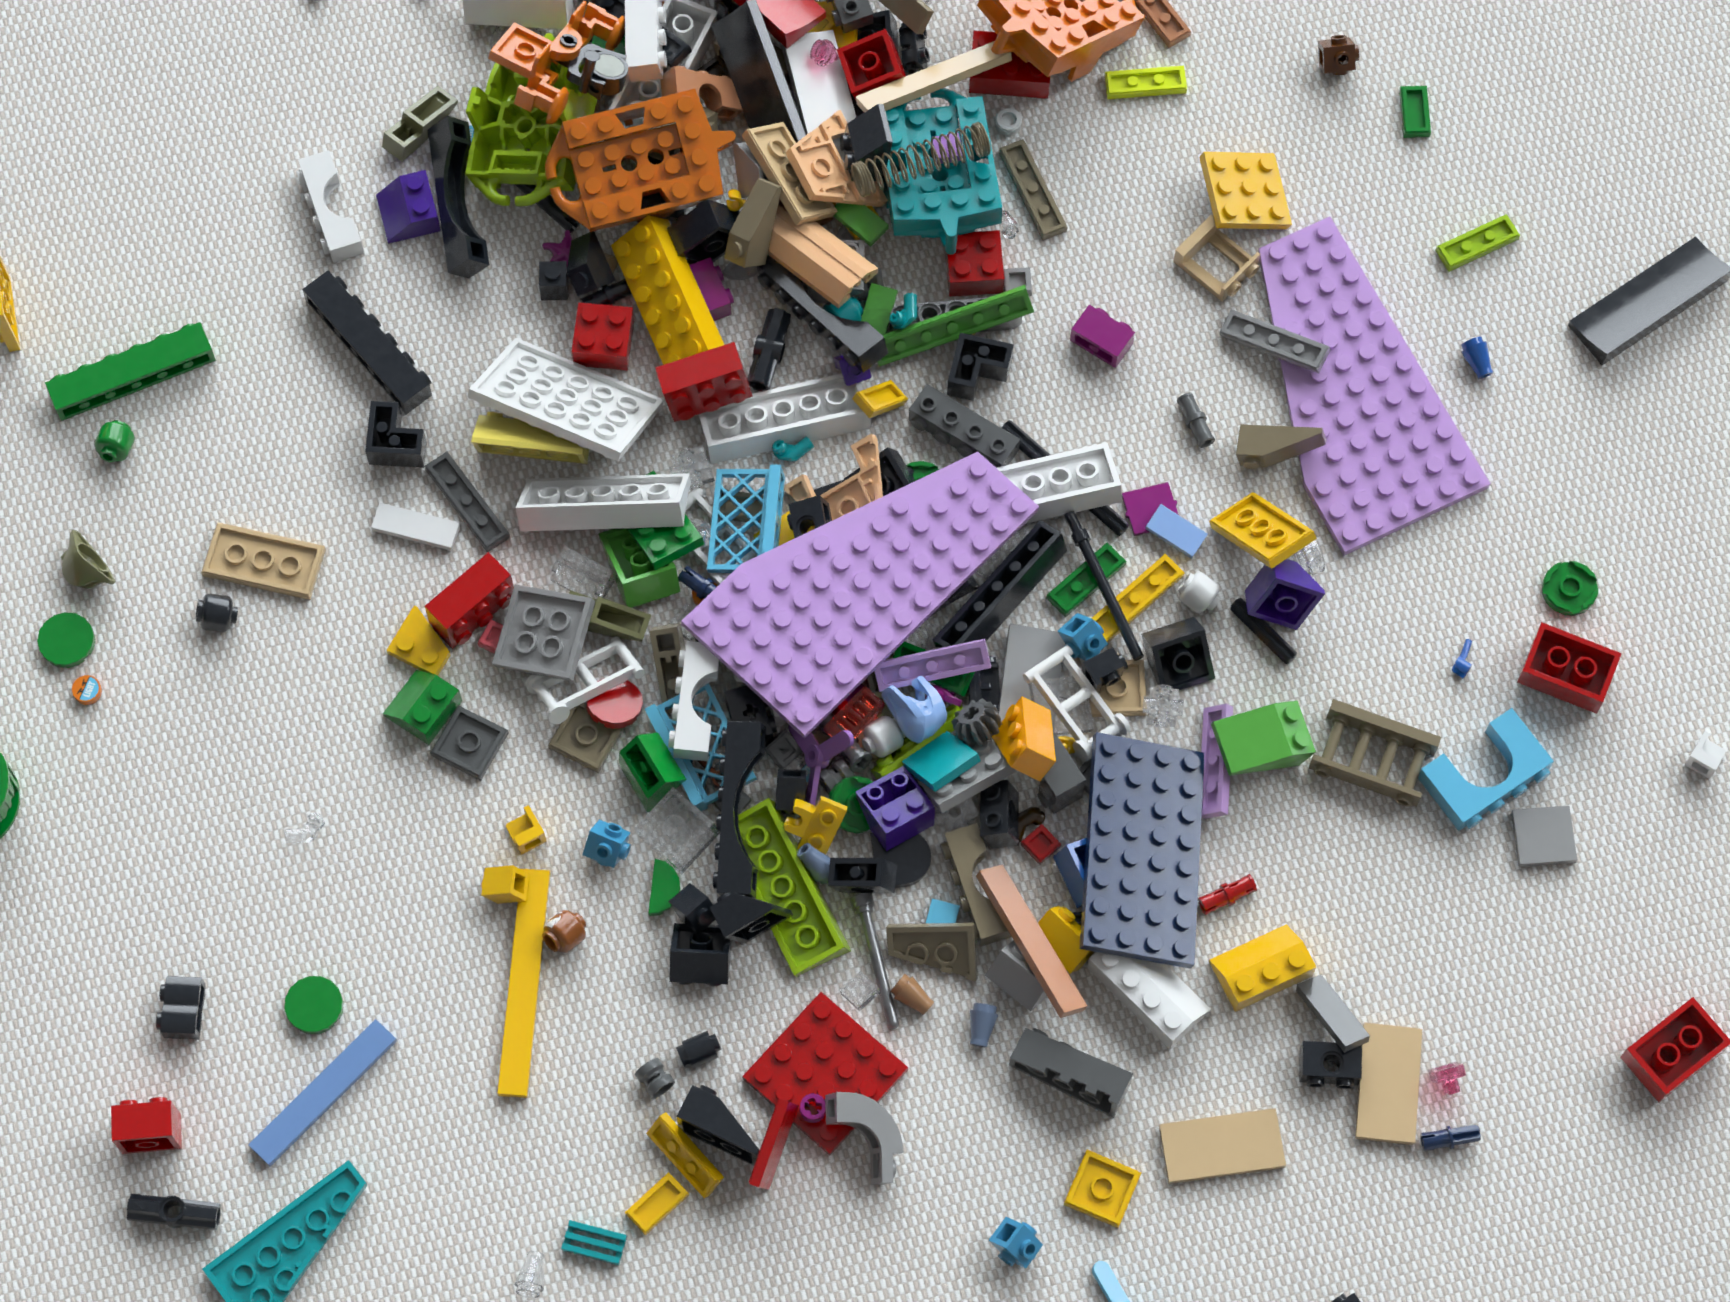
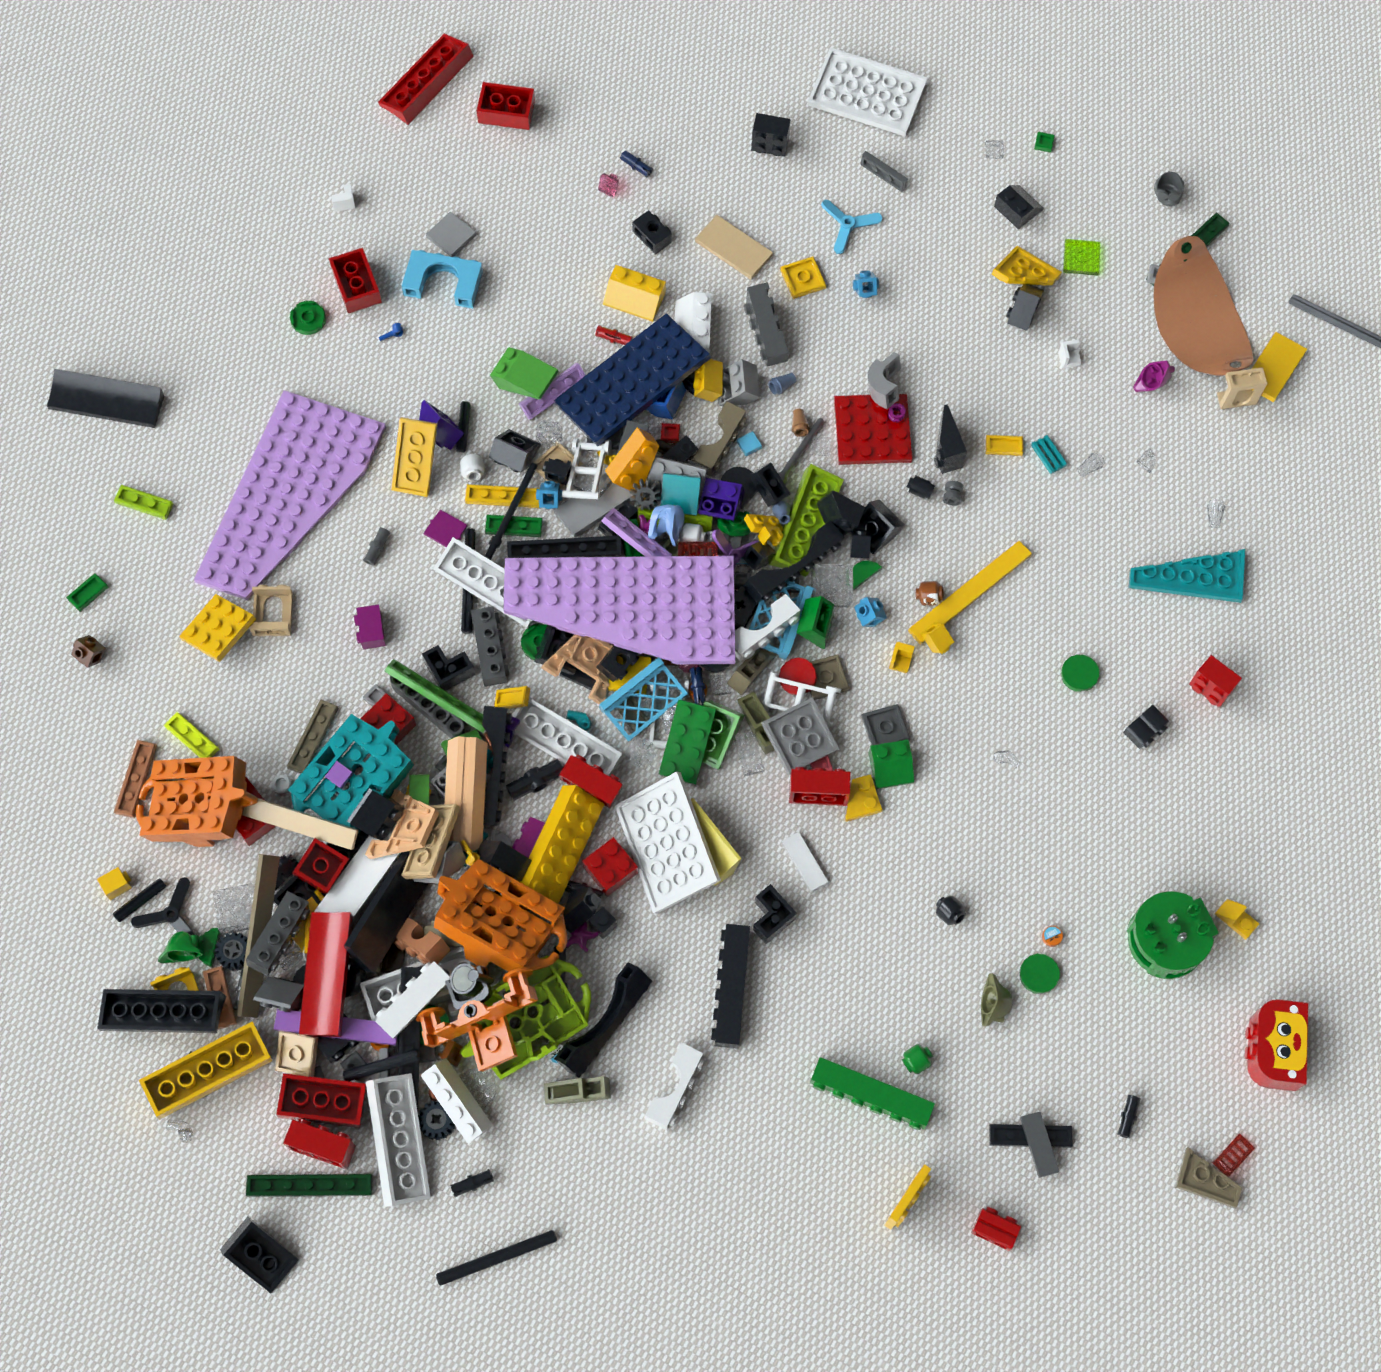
camera: 135 degrees left, 0 degrees up
(155, 1209) = (1225, 628): black piece -> none
(263, 561) = (898, 919): tan tile -> none
(322, 1093) = (1112, 629): medium blue tile -> none
(408, 208) = (634, 1043): dark purple slope -> none
(467, 501) = (765, 850): dark grey tile -> none
(603, 502) = (703, 772): white arch -> none
(685, 1155) = (973, 447): yellow tile -> none
(753, 228) = (479, 831): dark tan slope -> none
(773, 1144) = (930, 409): red tile -> none
(823, 52) = (336, 896): clear pink plate -> none
(863, 178) = (401, 795): dark tan piece -> none
(907, 315) = (454, 720): teal arm -> none
(936, 945) = (763, 426): dark tan wing -> none
(1031, 941) = (727, 384): tile -> none
(1176, 531) = (448, 505): light blue tile -> none
(1270, 445) = (360, 497): dark tan slope -> none
(1274, 341) = (296, 543): light grey tile -> none
(1332, 1013) = (629, 243): tile -> none
(1373, 725) = (469, 341): dark tan fence -> none
(1389, 1084) = (632, 204): tan tile -> none
(1477, 356) = (213, 450): blue cone -> none

